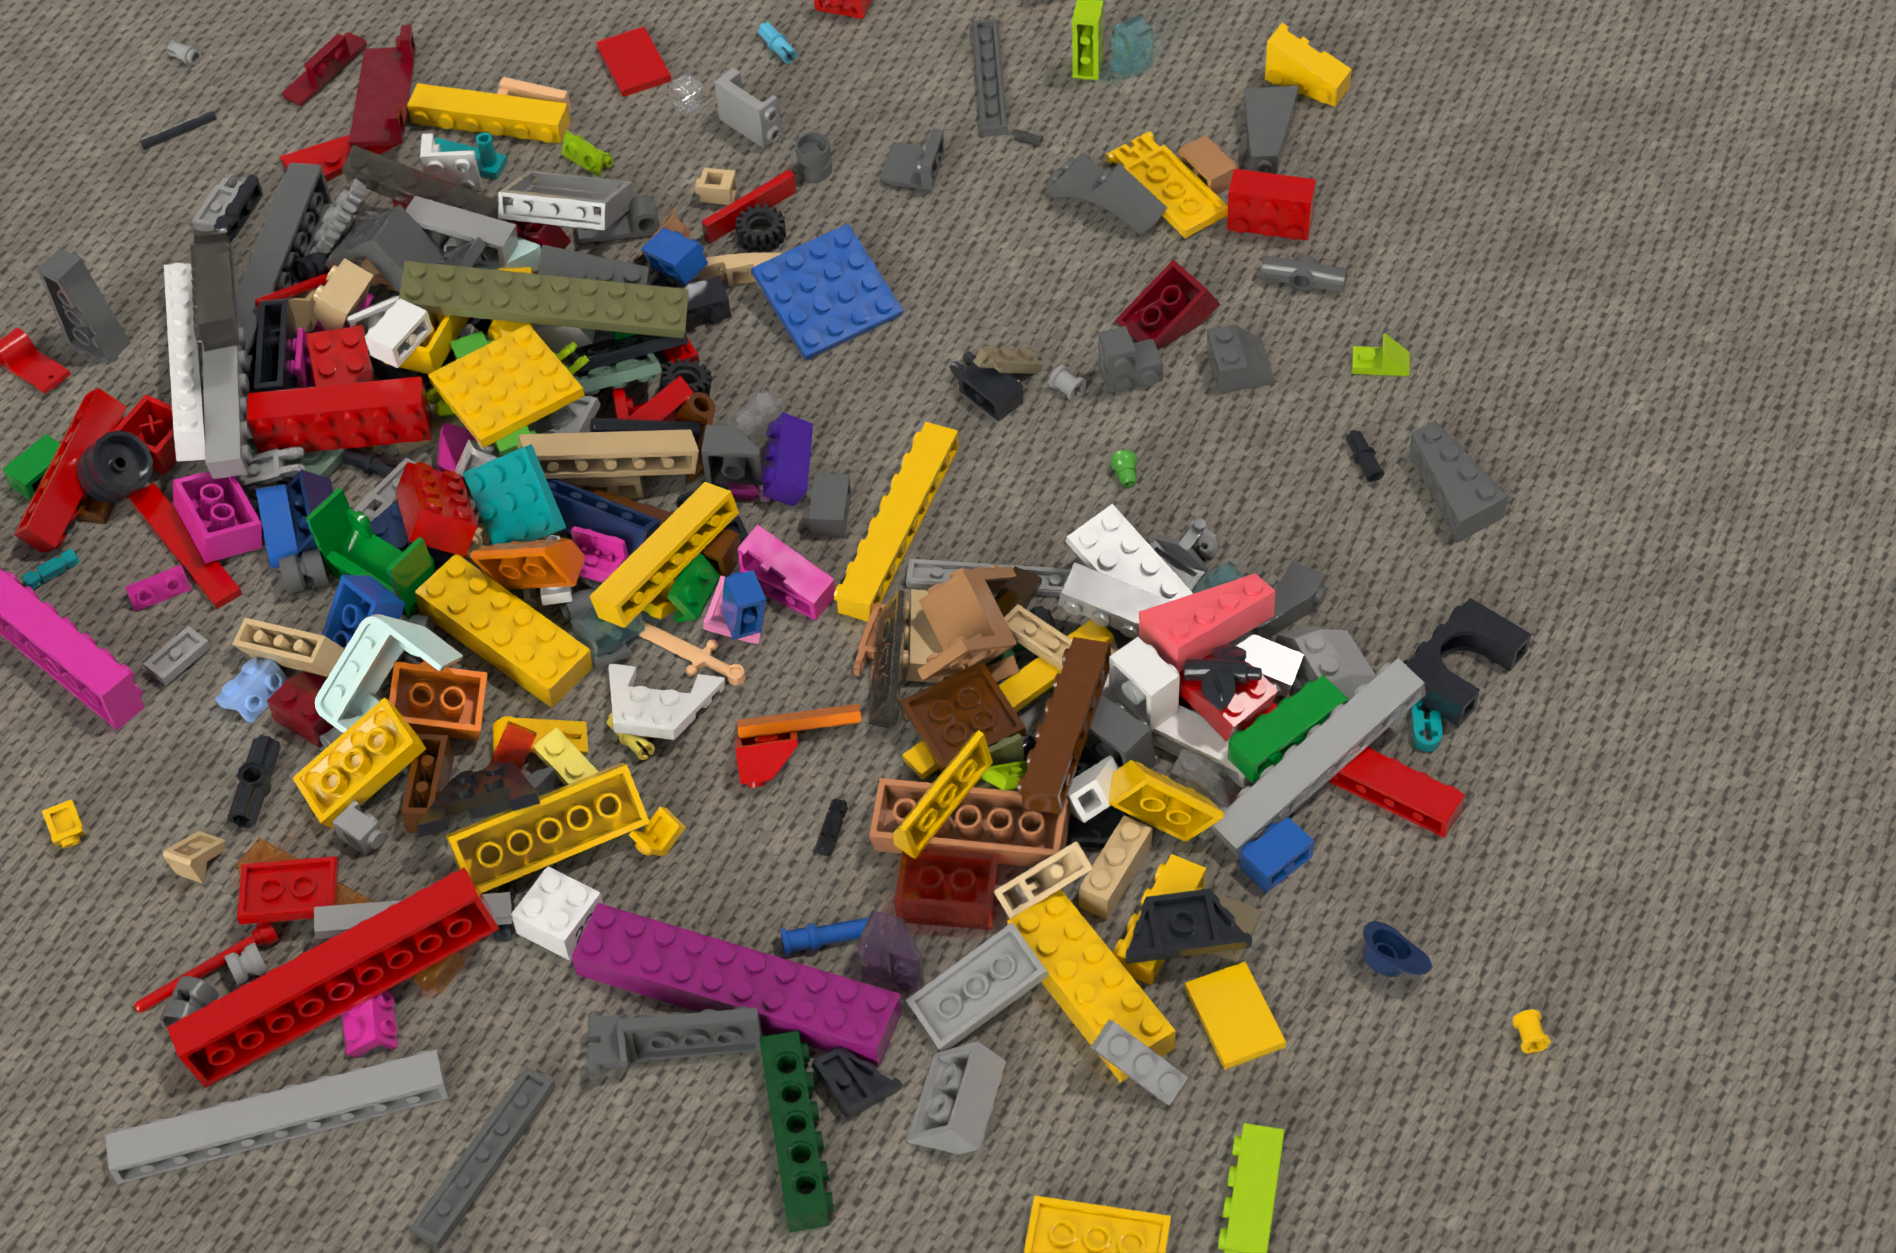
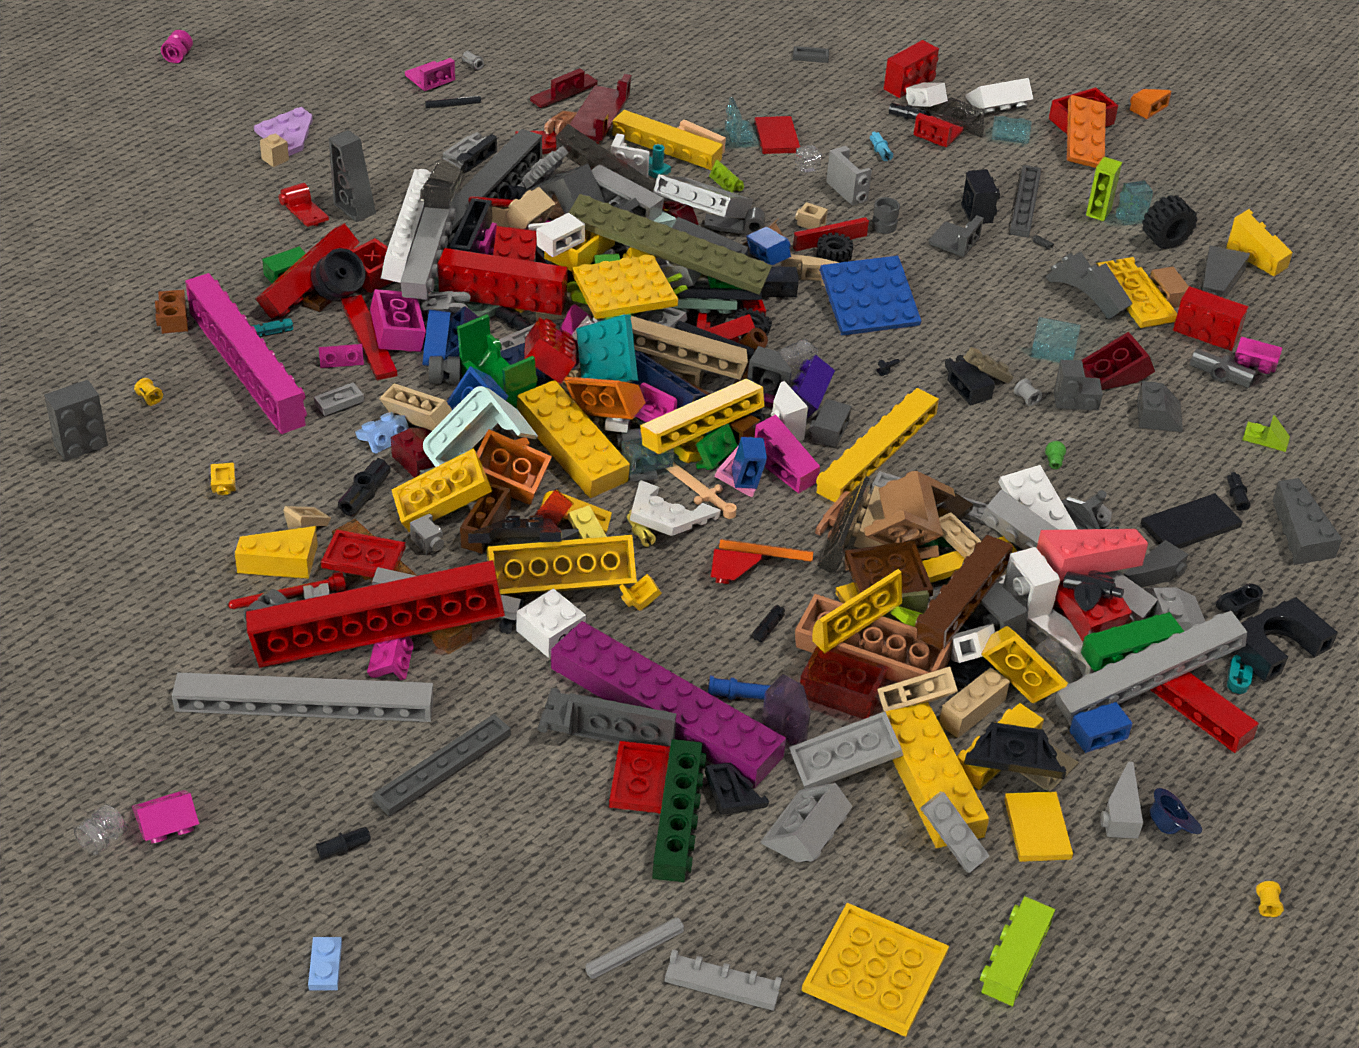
camera: 10 degrees right, 10 degrees down
(134, 93) = (432, 74): none -> dark pink bracket
(175, 916) = (278, 553): none -> yellow wedge
(336, 125) = (559, 121): none -> nougat hinge
(582, 68) = (739, 130): none -> clear light blue bracket
(734, 1098) = (639, 777): none -> red plate
(773, 509) = (790, 410): none -> white slope
(873, 396) = (885, 366): none -> black hand
(929, 93) = (980, 196): none -> black hinge
(1083, 296) = (1055, 340): none -> clear light blue hinge
(1184, 66) = (1169, 222): none -> black tyre
(1317, 519) = (1192, 522): none -> black tile
(1331, 967) = (1123, 809): none -> light grey slope
(1342, 240) = (1257, 355): none -> dark pink bracket
(1401, 625) = (1241, 601): none -> black piece

